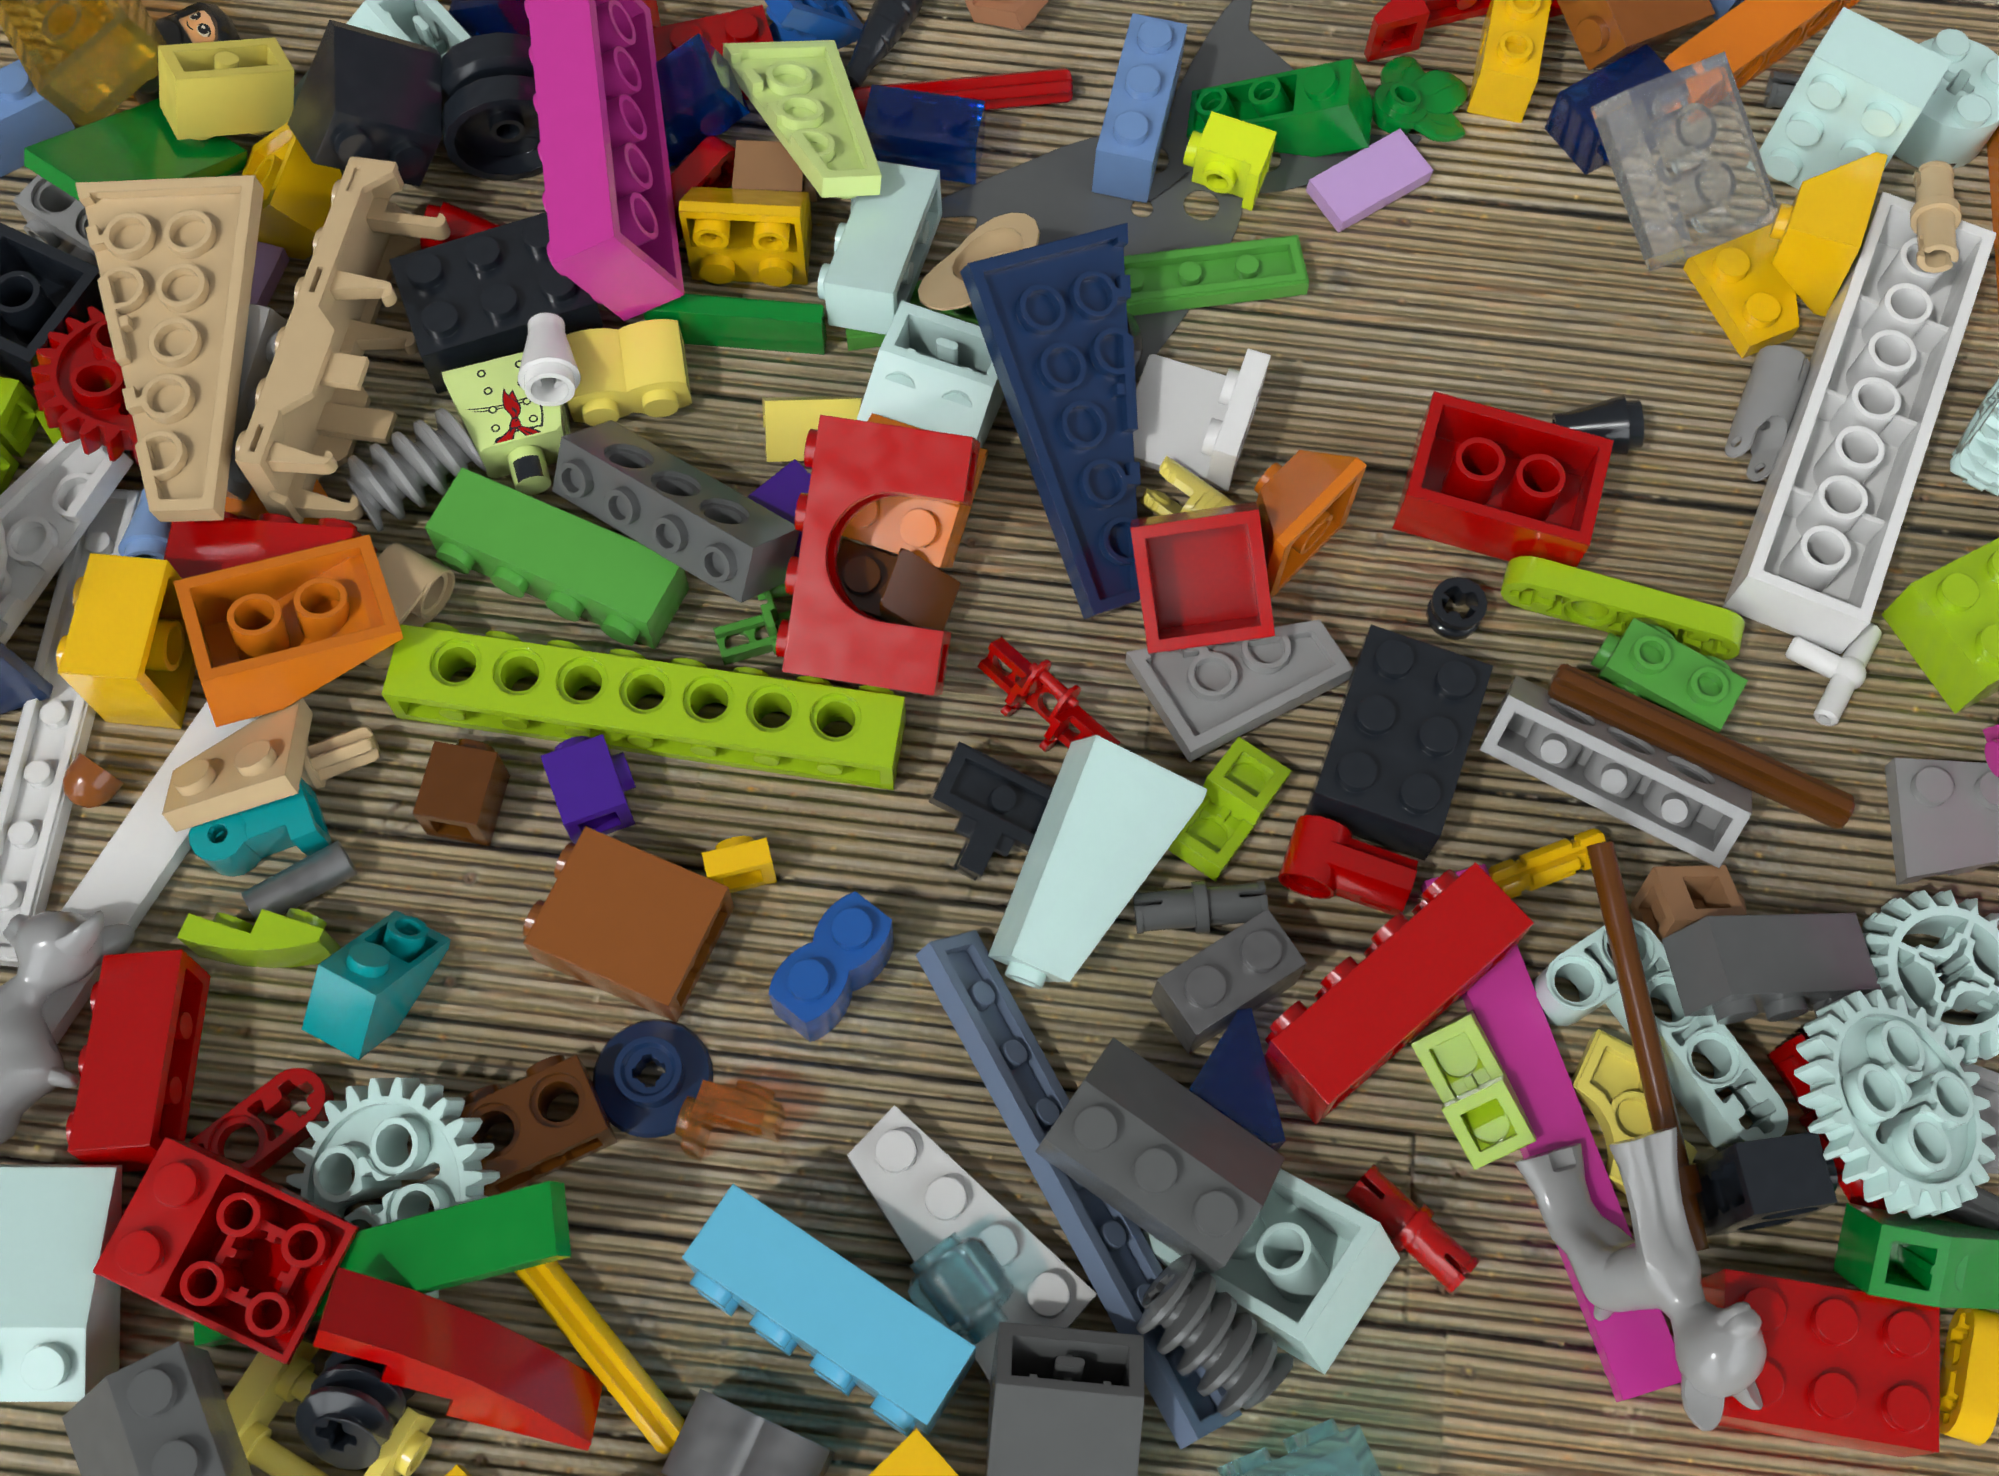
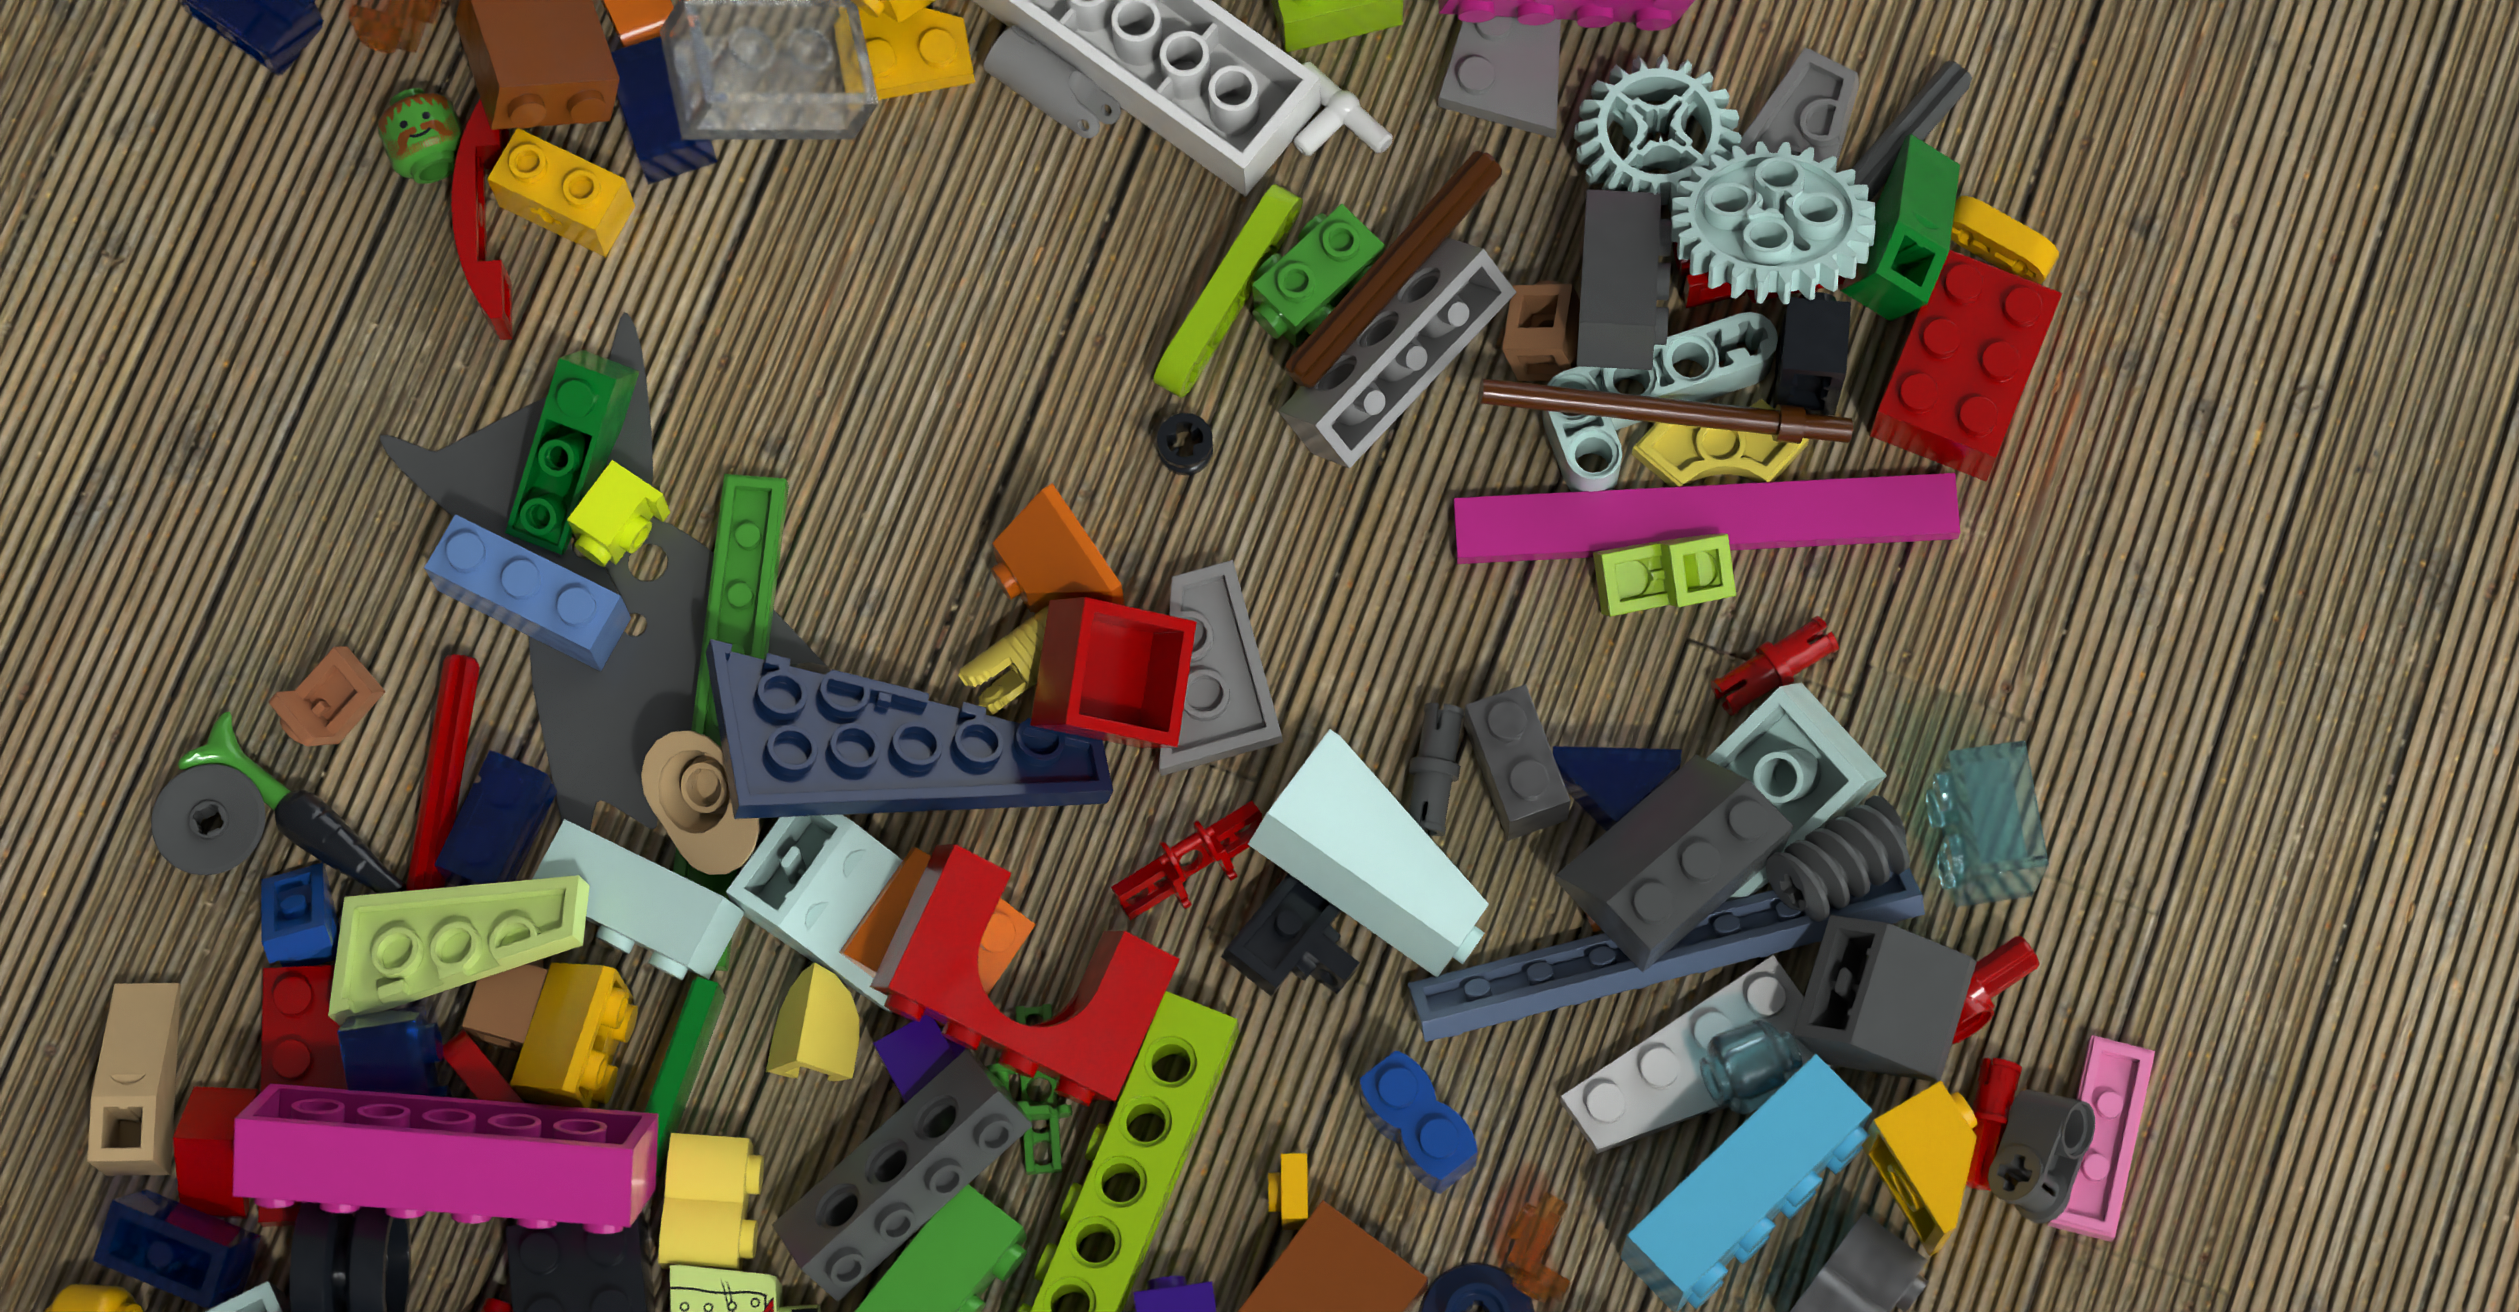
camera: 70 degrees left, 5 degrees up
(547, 364) = (703, 1269): white cone -> none
(898, 587) = (1041, 972): reddish brown slope -> none
(1197, 415) = (915, 628): white bracket -> none
(1234, 803) = (1326, 699): lime slope -> none
(1329, 862) = (1421, 637): red piece -> none
(1369, 180) = (672, 382): lavender tile -> none
(1395, 992) = (1571, 615): red brick -> none
(1399, 742) = (1318, 540): black brick -> none
(1419, 100) = (586, 294): green plate -> none
(1502, 483) = (1075, 360): red brick -> none
(1545, 864) = (1466, 440): yellow axle -> none
(1609, 419) = (1027, 243): black cone -> none
(1714, 1347) = (1868, 472): light grey animal -> none

